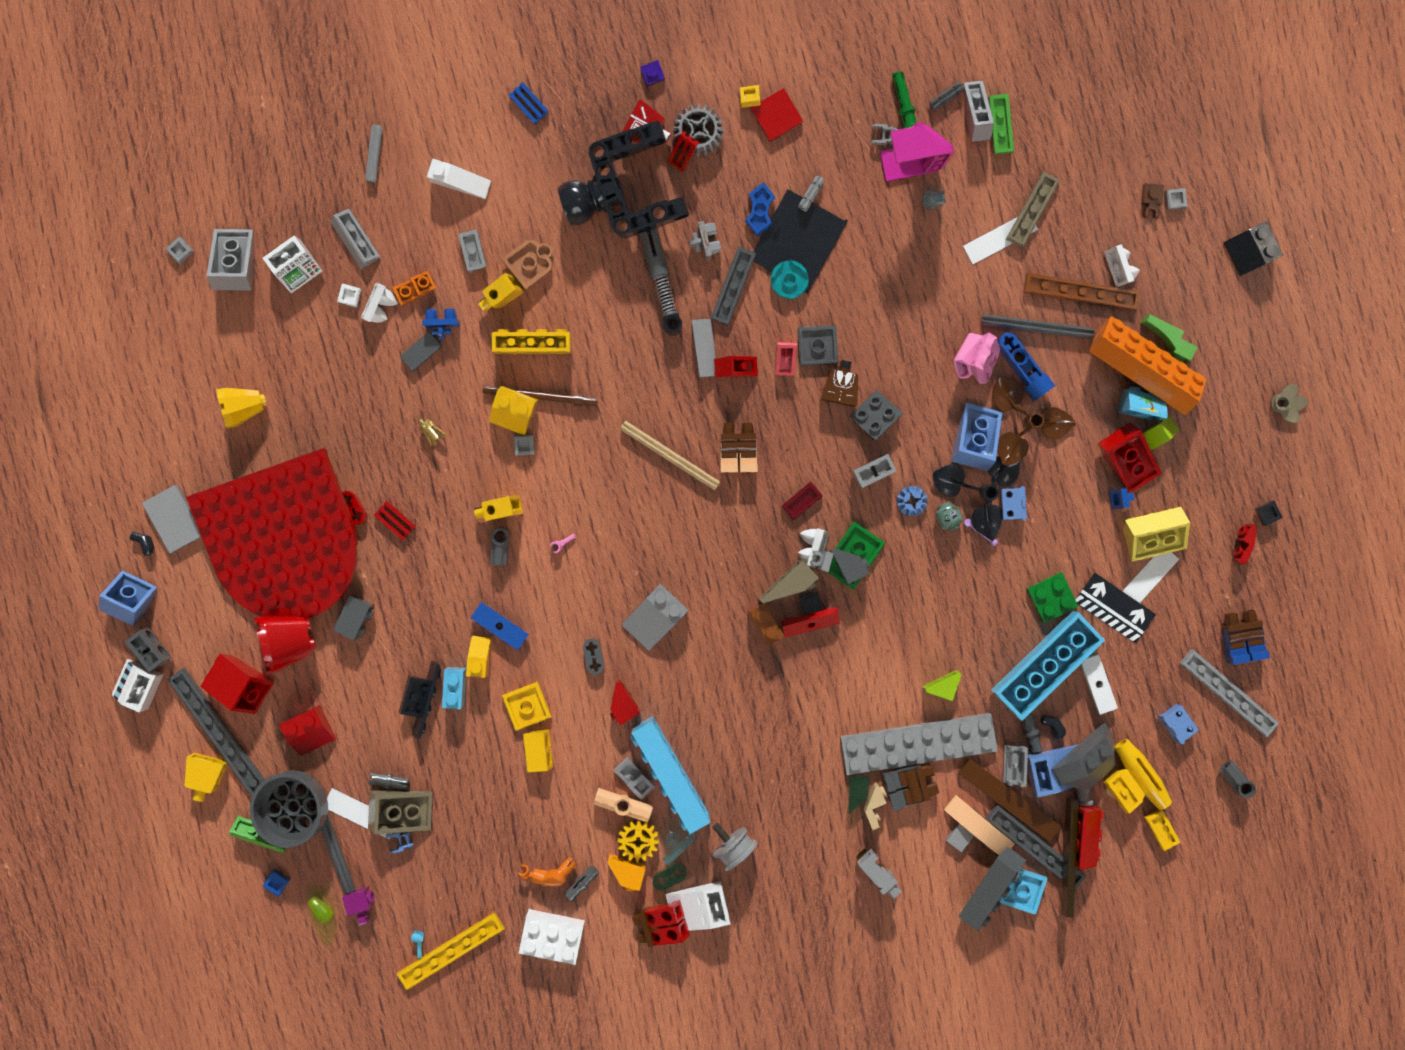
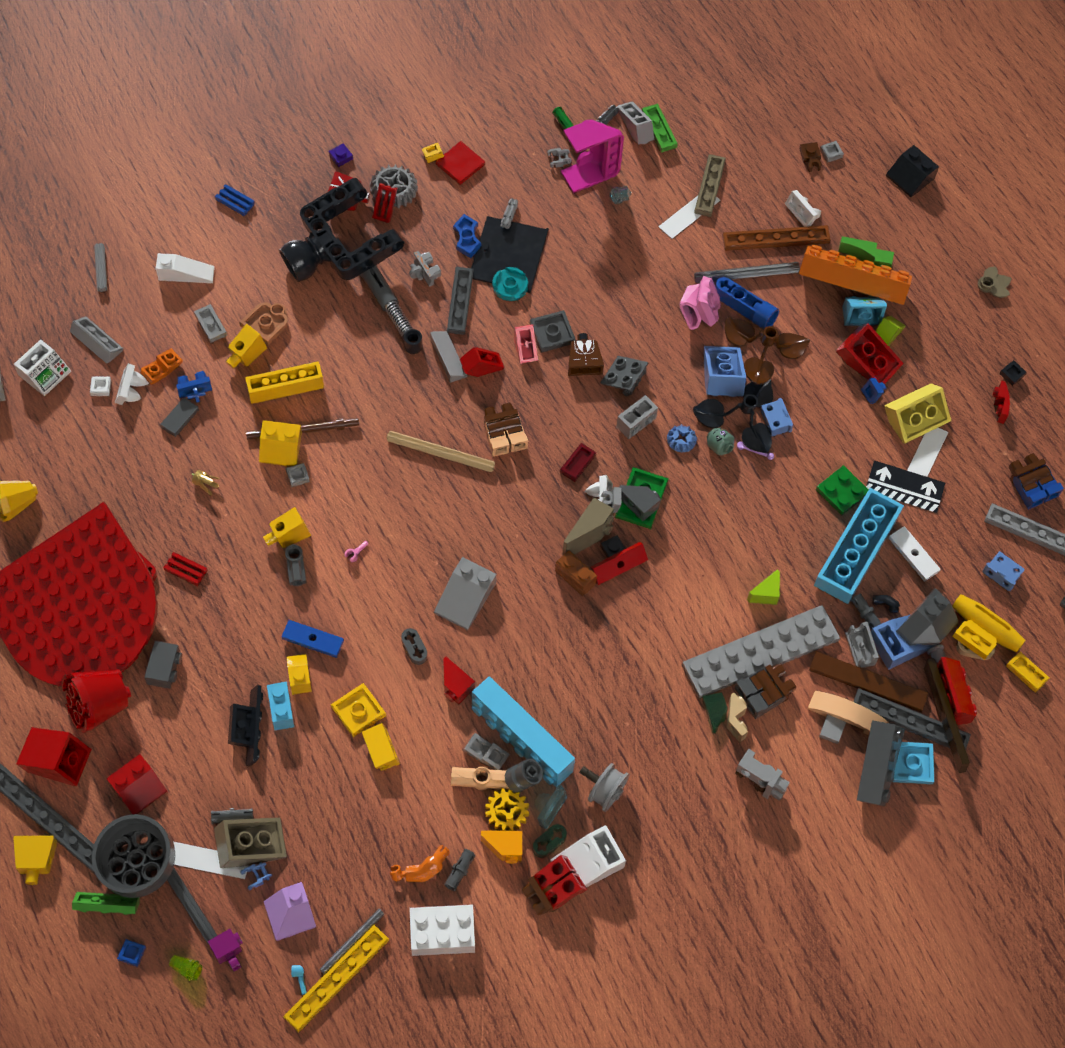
camera: 20 degrees left, 25 degrees down
(422, 882) = (289, 911): none -> lavender slope
(470, 922) = (351, 941): none -> flat silver bar
(659, 821) = (523, 775): none -> dark grey wheel

